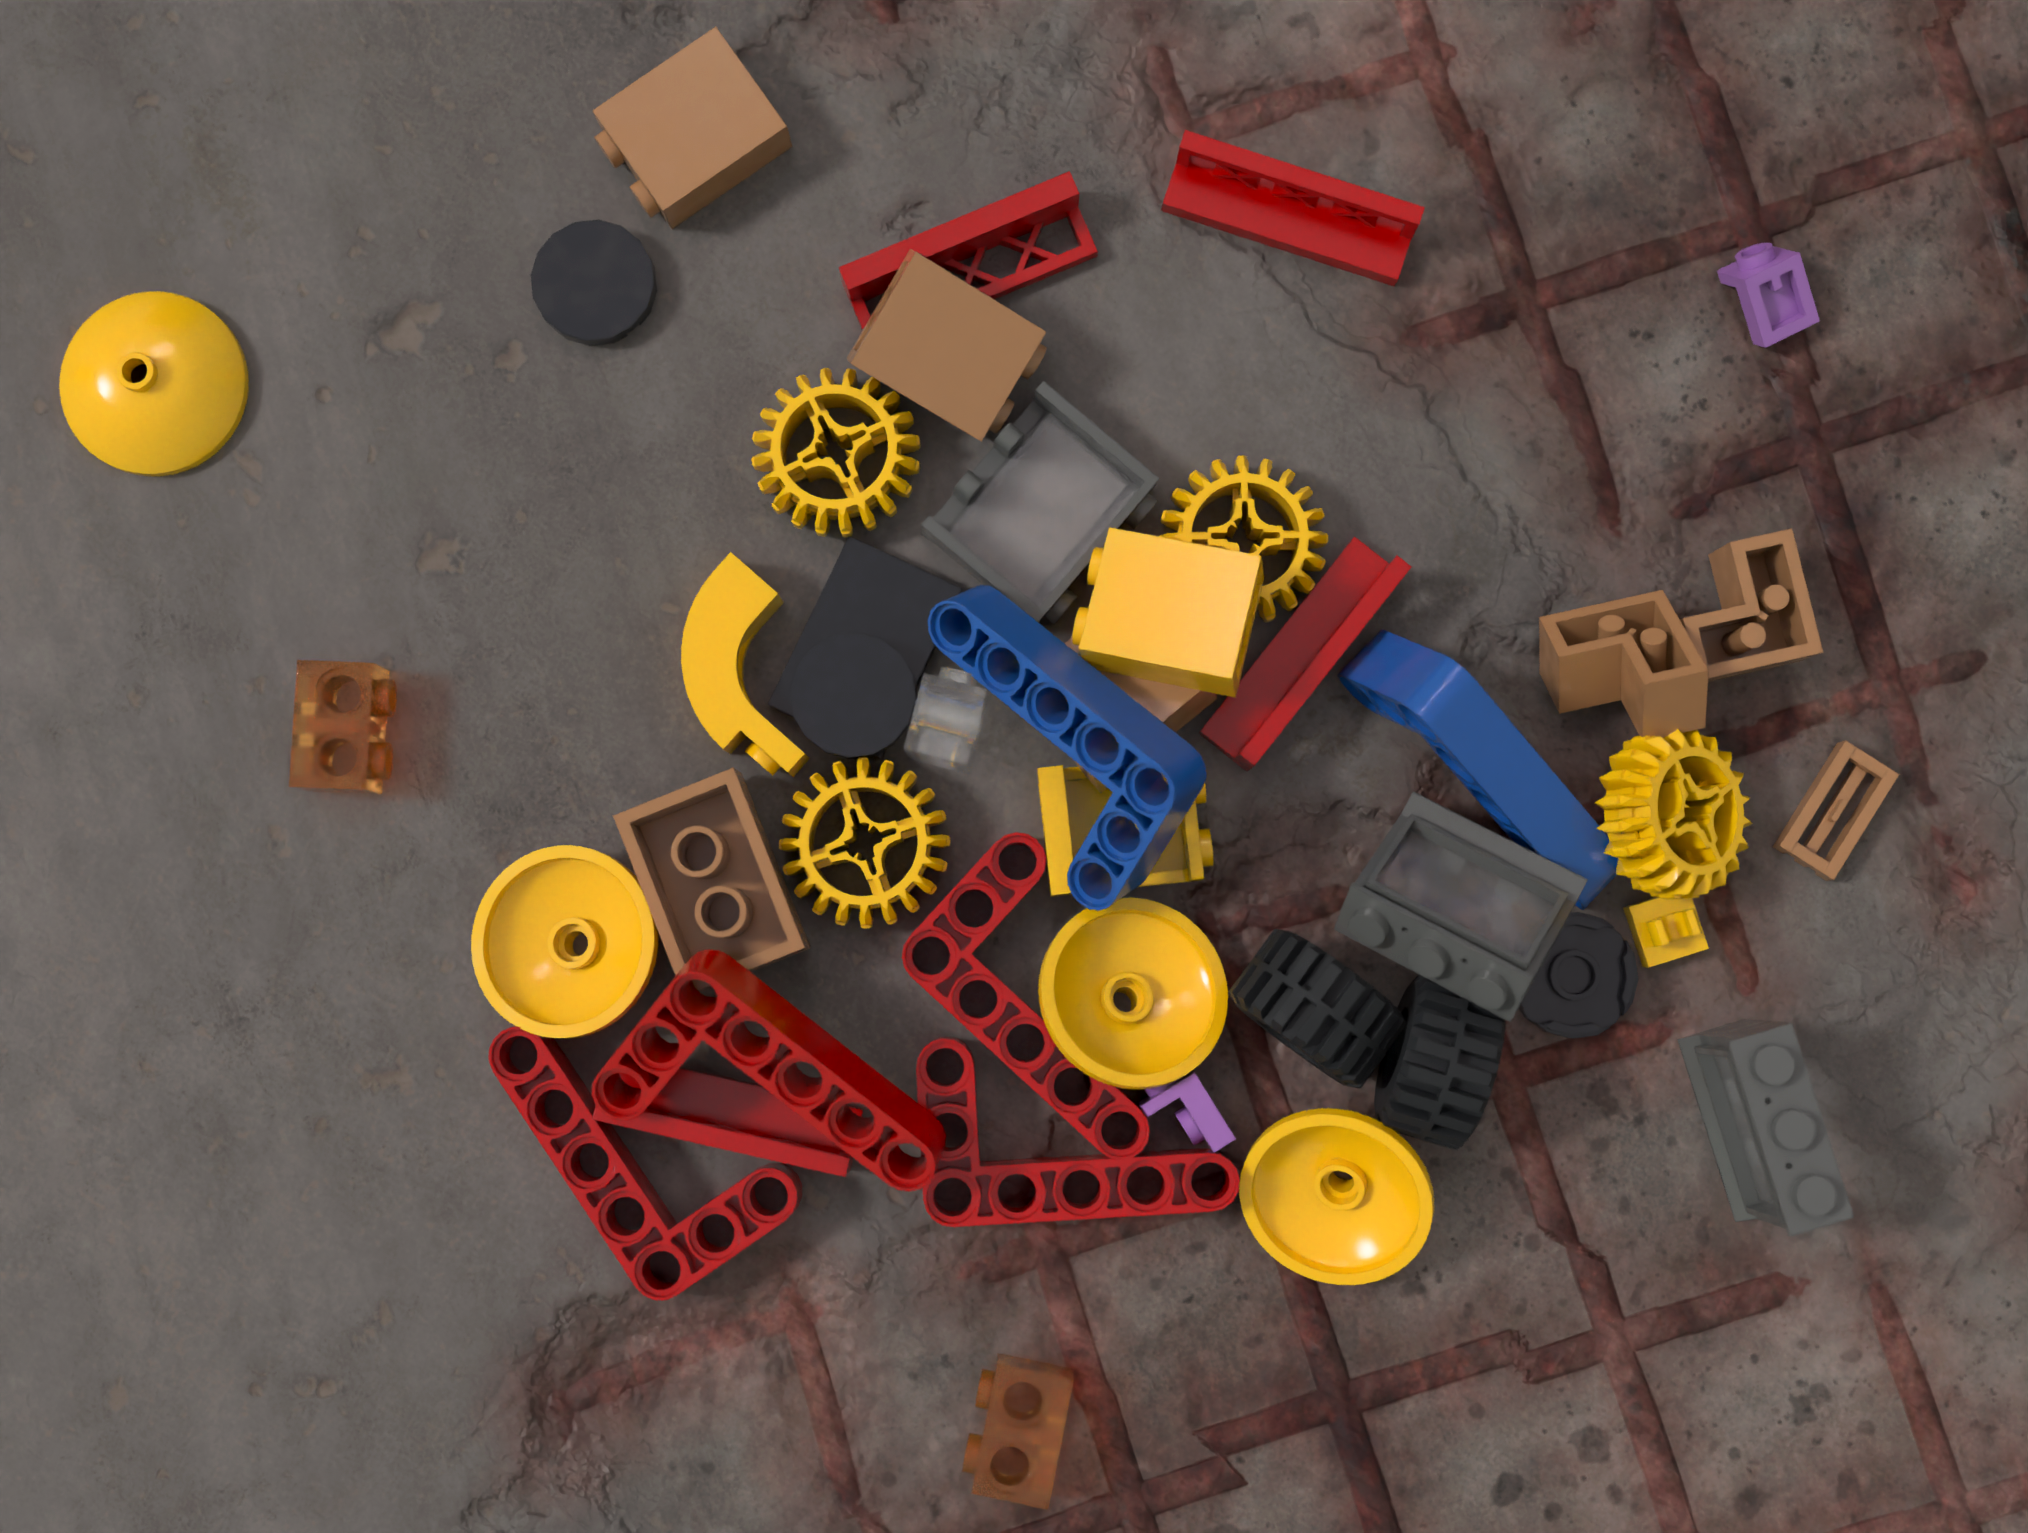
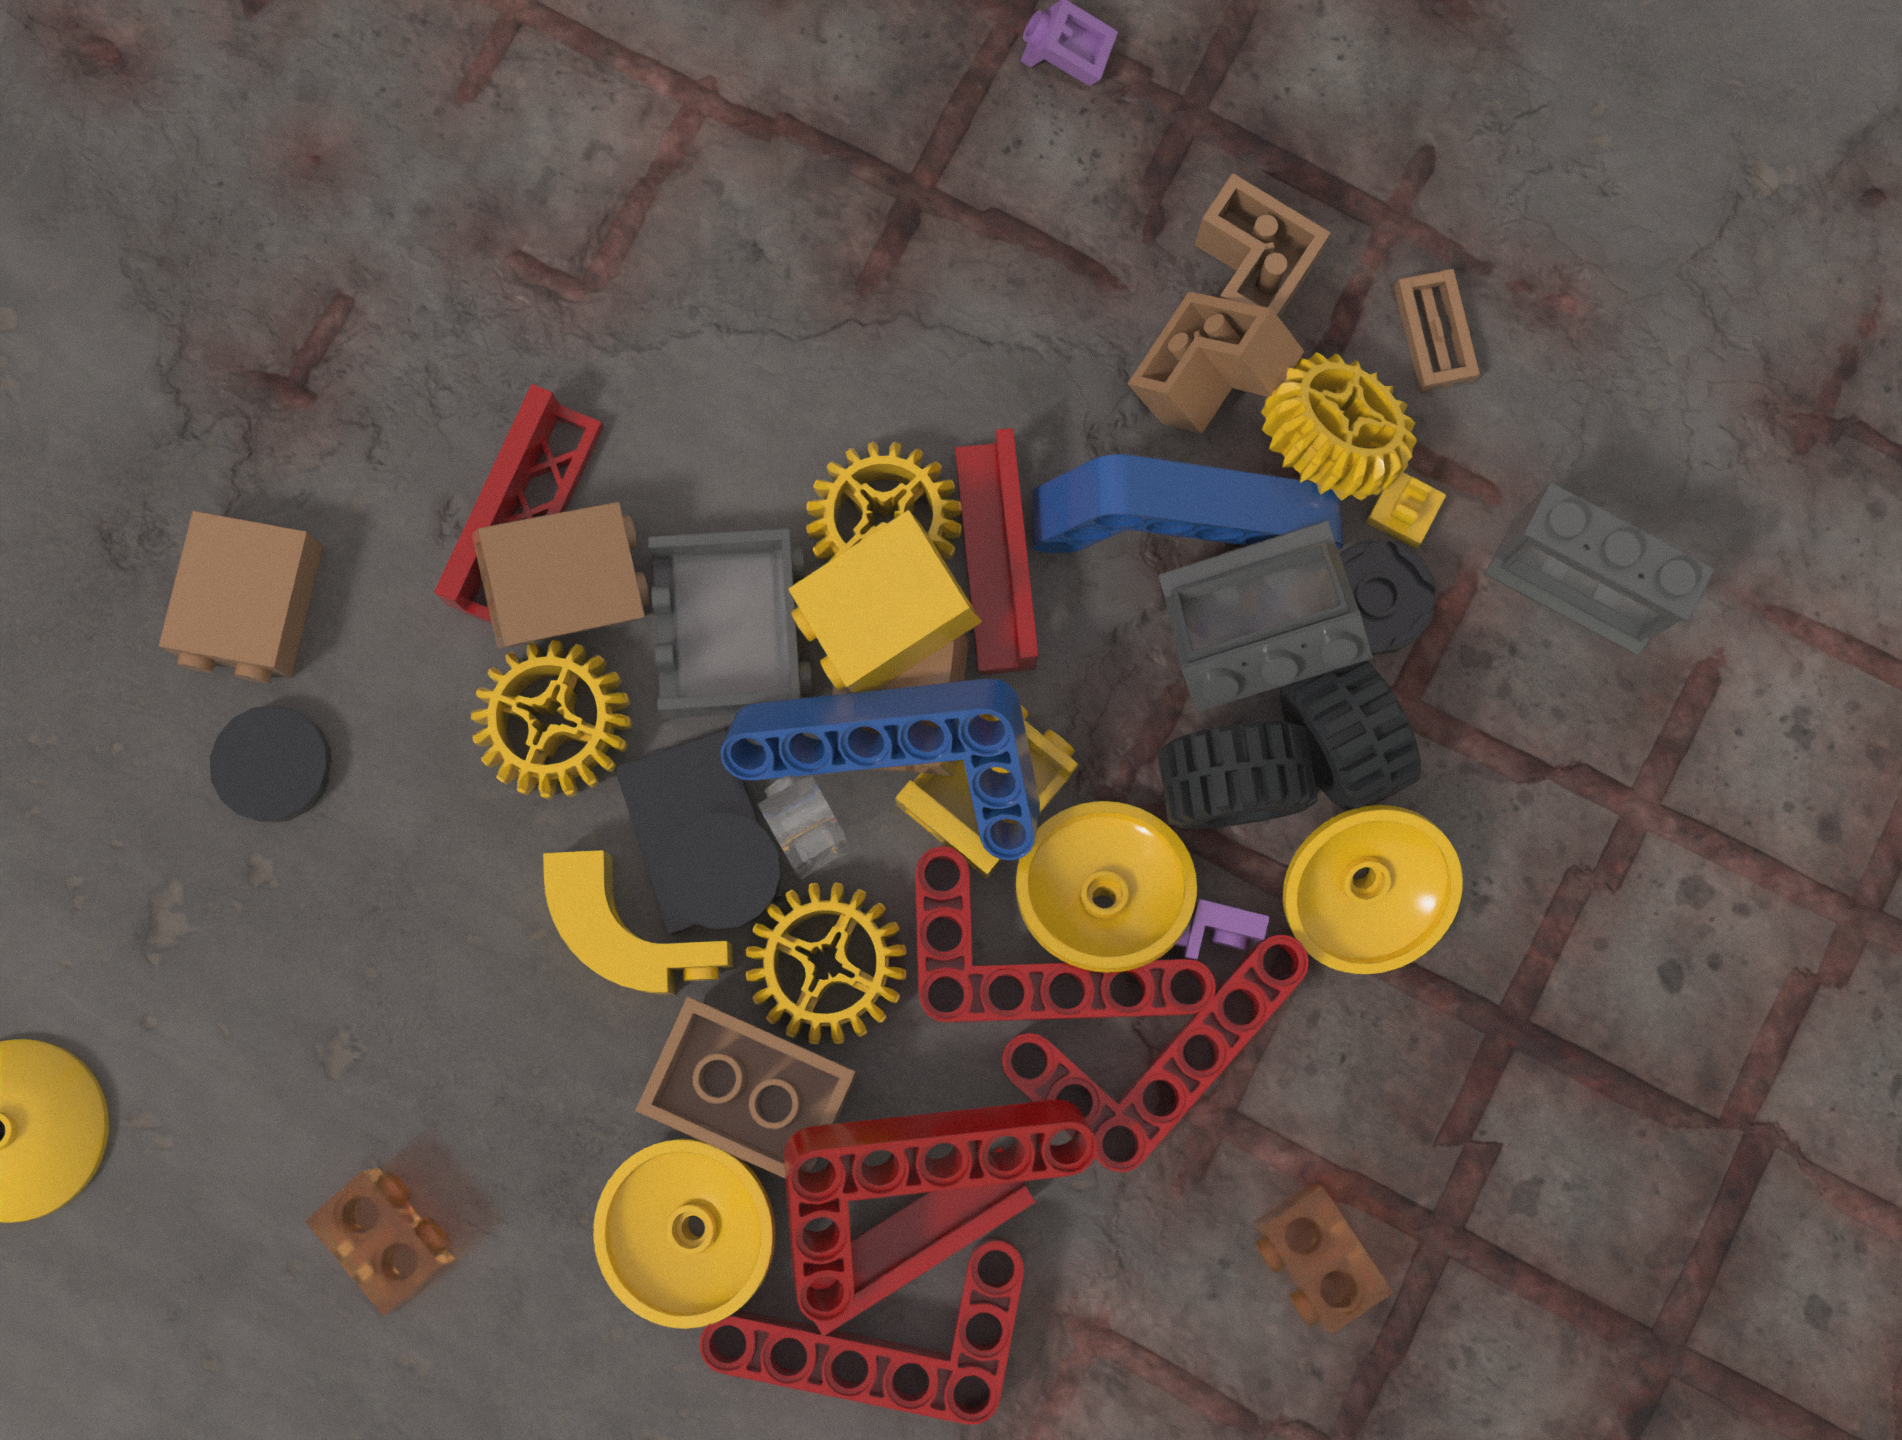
camera: 45 degrees left, 5 degrees down
(1291, 208) = (703, 273): red fence -> none

